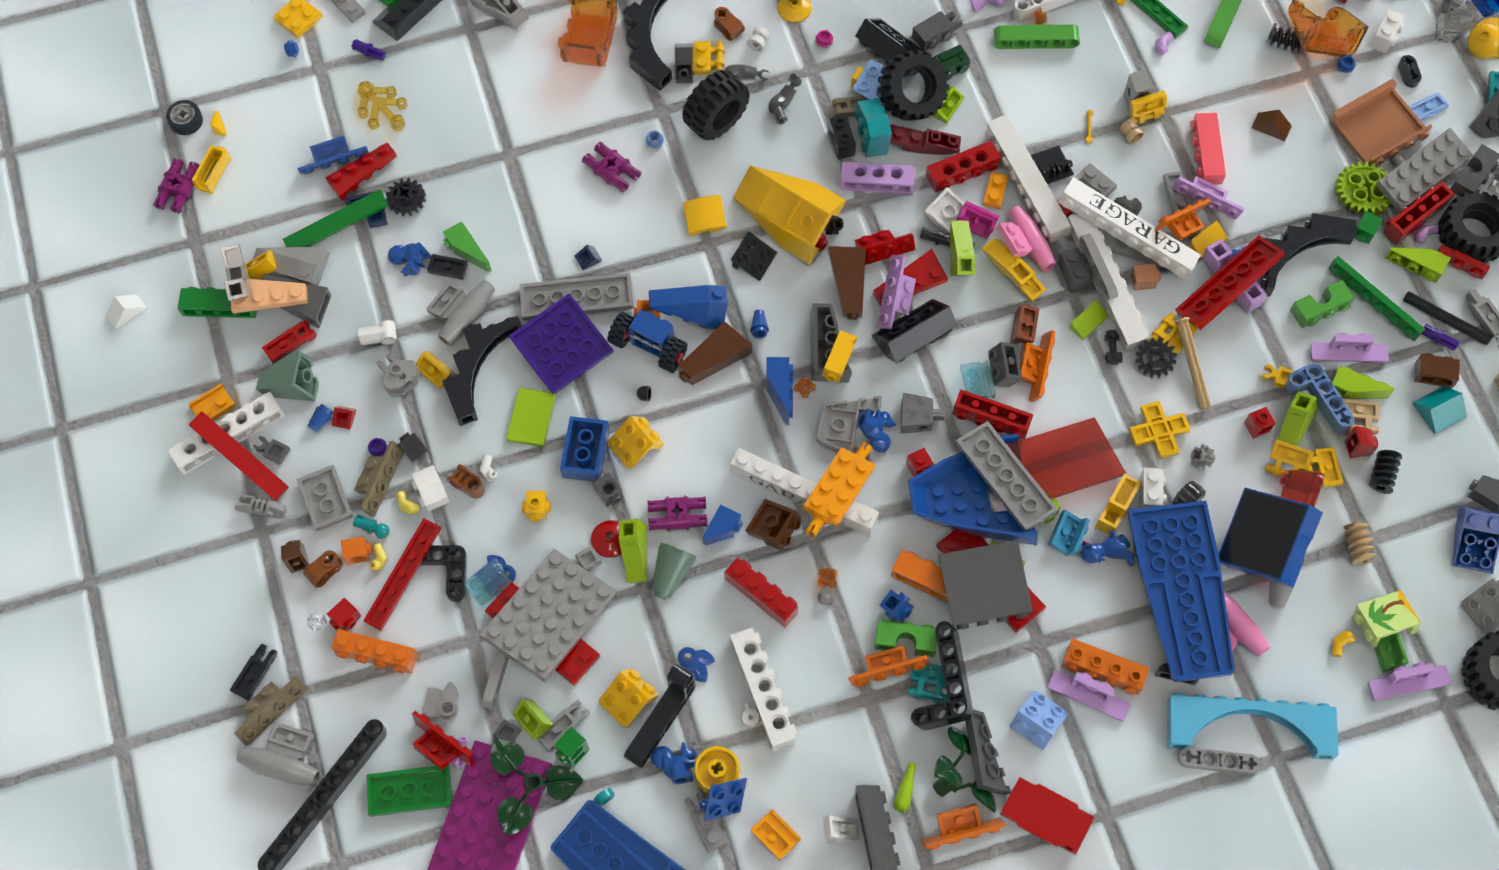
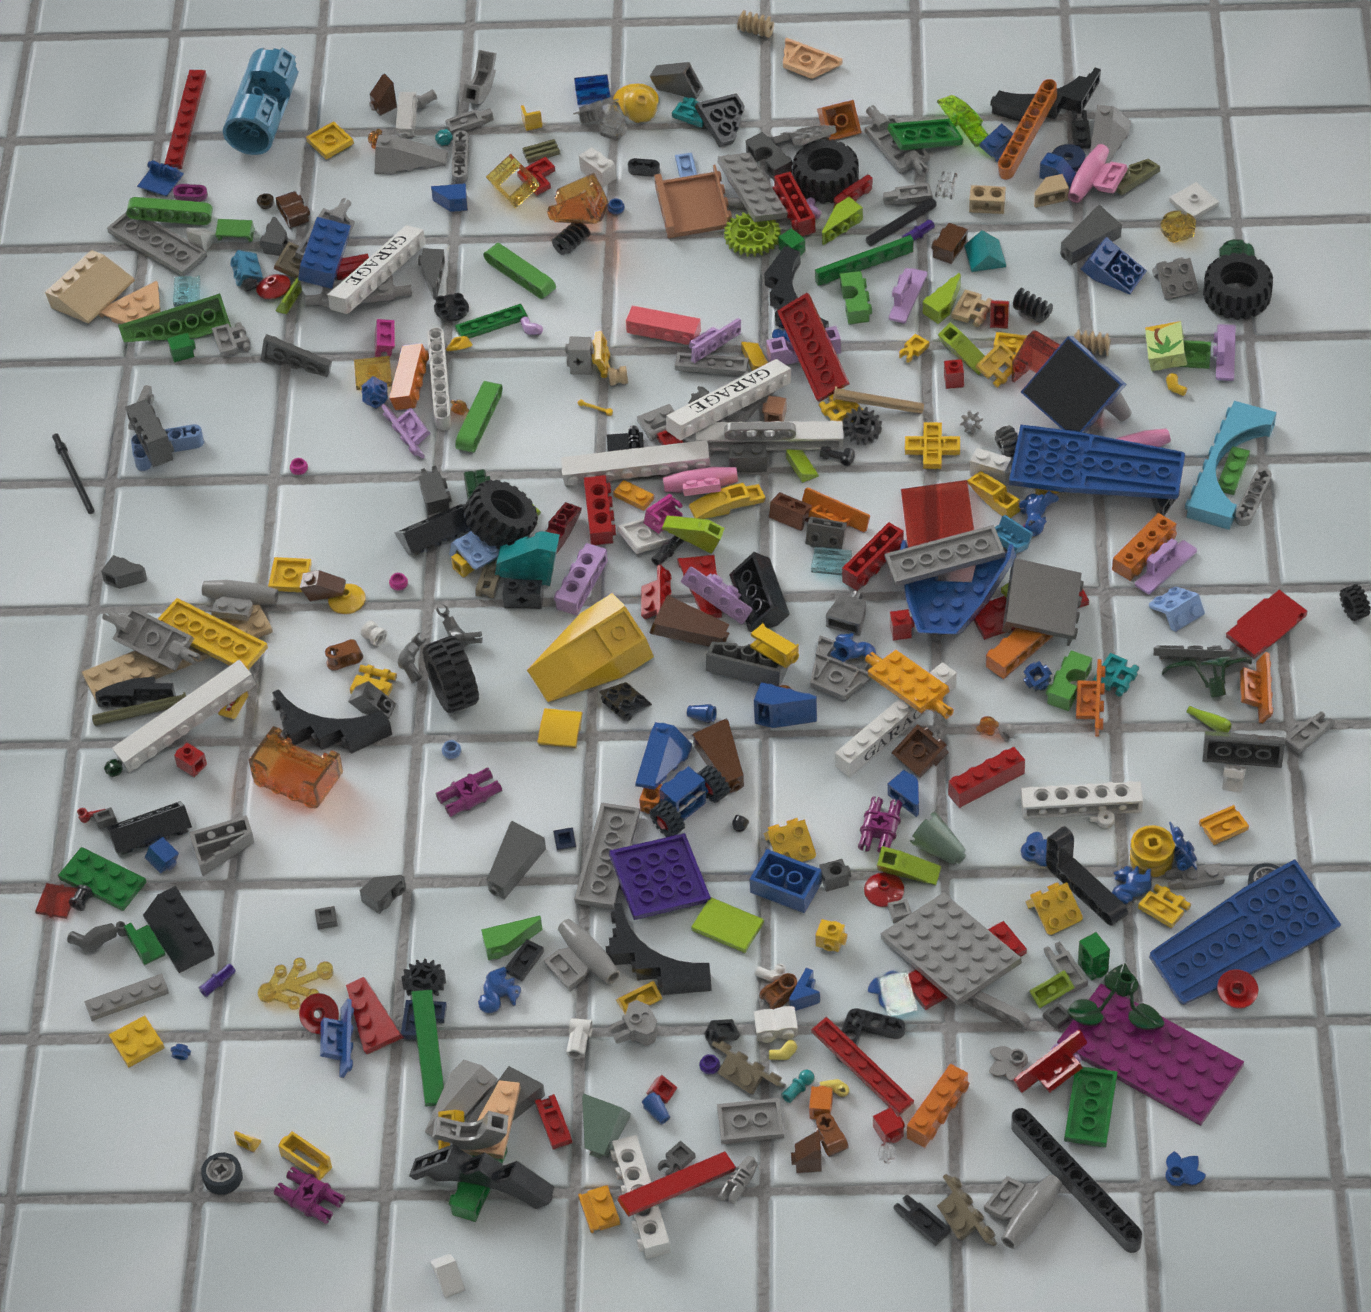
camera: 70 degrees left, 15 degrees down
(208, 301) = (456, 1165): none -> black arch
(345, 125) = (317, 1002): none -> red dish
(453, 106) = (326, 917): none -> dark grey tile
(468, 500) = (804, 994): none -> blue slope
(484, 135) = (382, 891): none -> dark grey slope
(554, 224) = (514, 859): none -> dark grey slope
(604, 796) = (1147, 946): teal tile -> none
(654, 799) = (1161, 909): none -> yellow plate
(951, 681) = (1125, 653): black beam -> none
(1184, 222) = (738, 360): orange bracket -> none
(1247, 731) = (1233, 470): none -> bright green plate
(1272, 124) = (654, 277): reddish brown slope -> none
(1339, 418) = (935, 320): medium blue beam -> none

